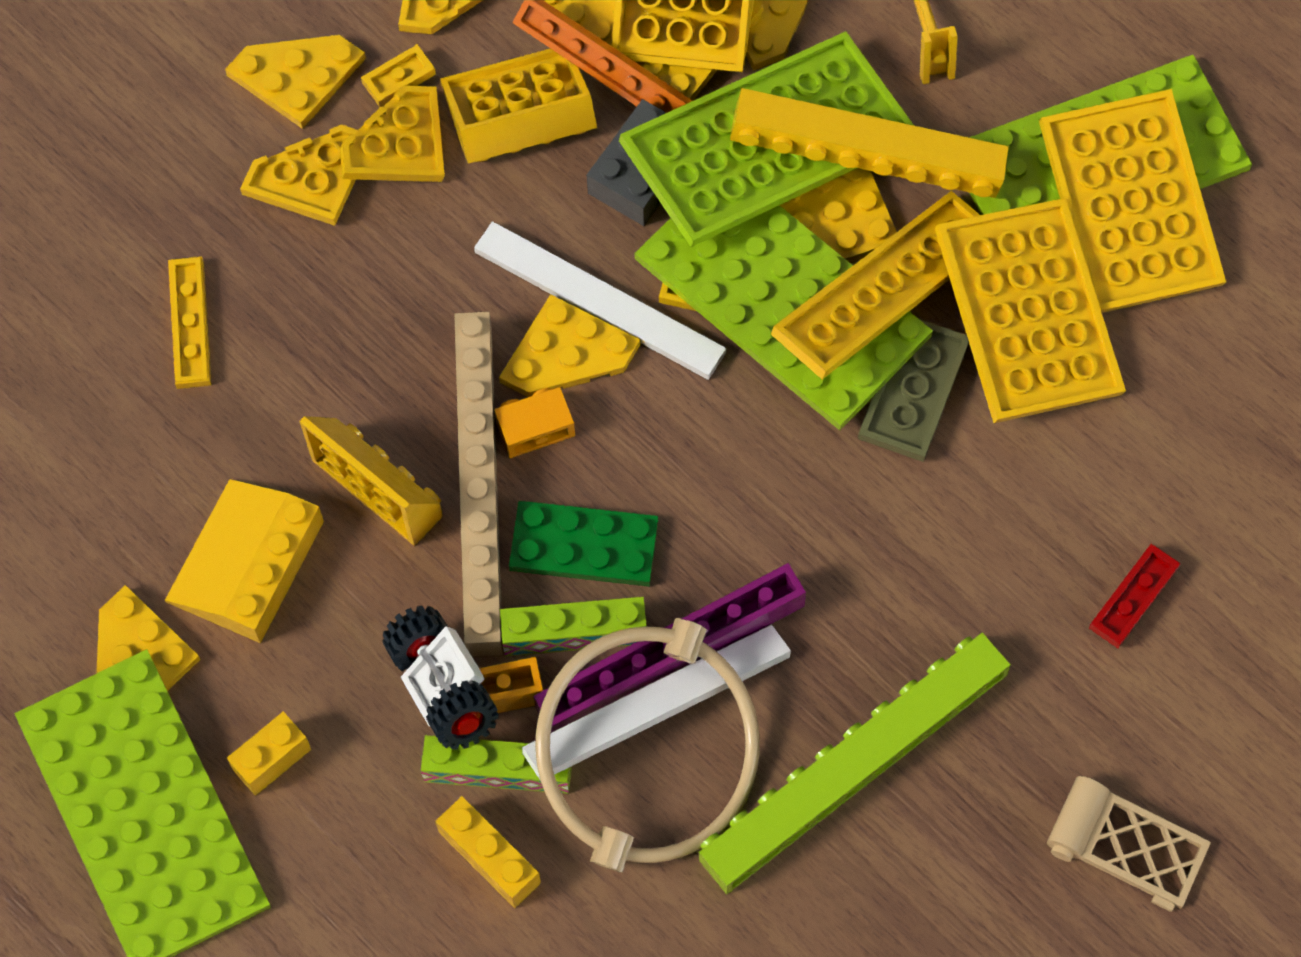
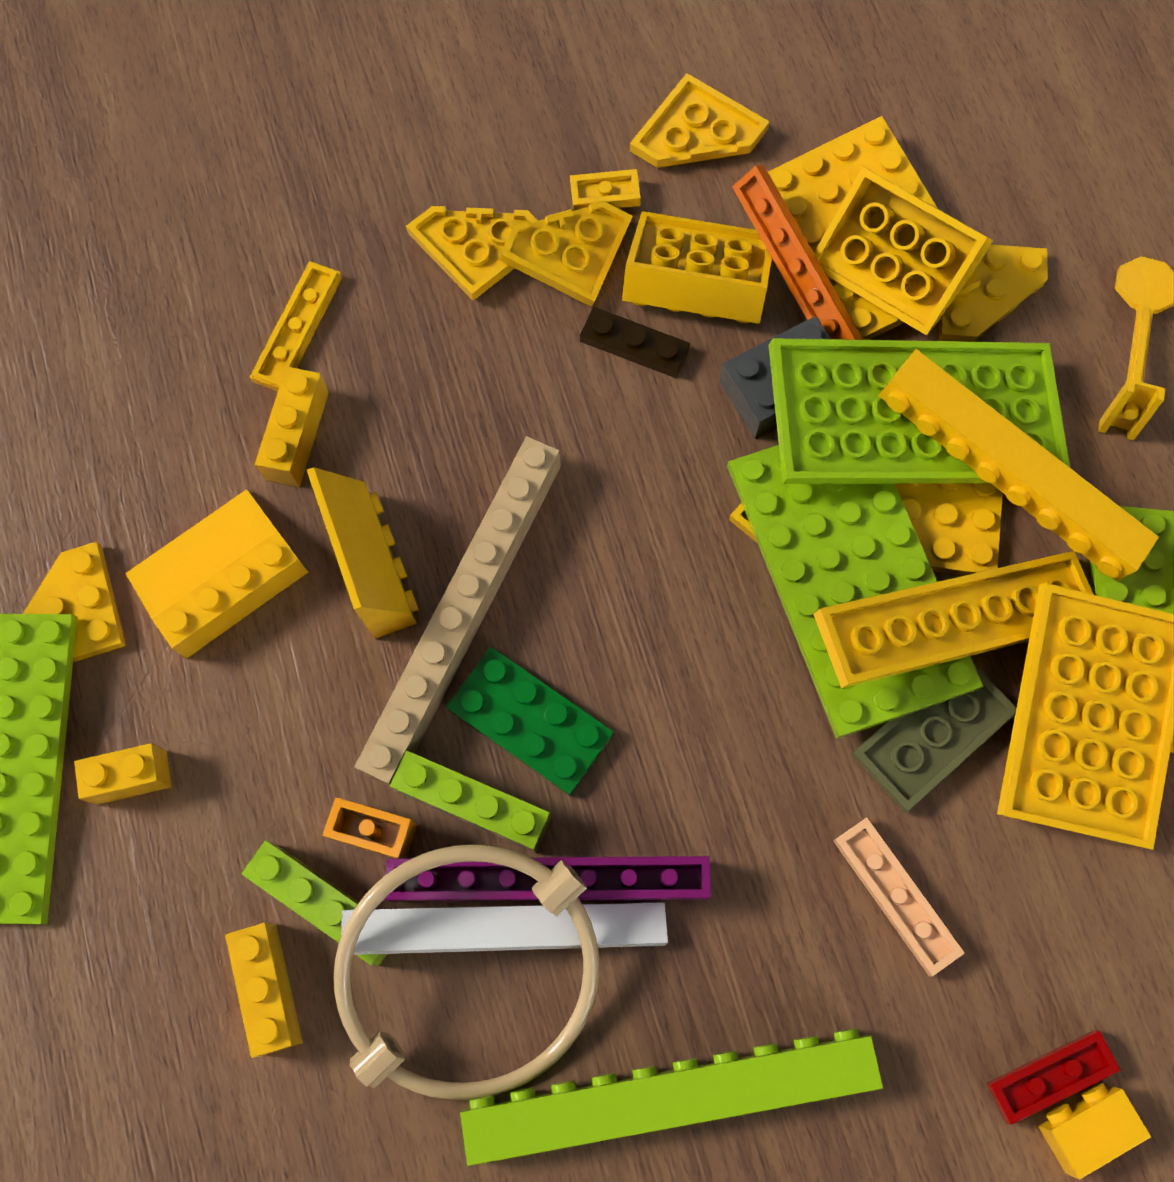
camera: 30 degrees right, 5 degrees up
(242, 406) = (292, 427): none -> yellow brick
(296, 74) = (517, 147): yellow plate -> none
(441, 677) = (308, 793): plate -> none
(497, 194) = (634, 342): none -> dark brown plate
(534, 421) = (547, 576): light orange brick -> none
(567, 350) = (617, 523): yellow plate -> none
(600, 300) = (676, 493): white tile -> none
(950, 525) = (898, 897): none -> light nougat plate
(1182, 616) = (1093, 1130): none -> yellow brick

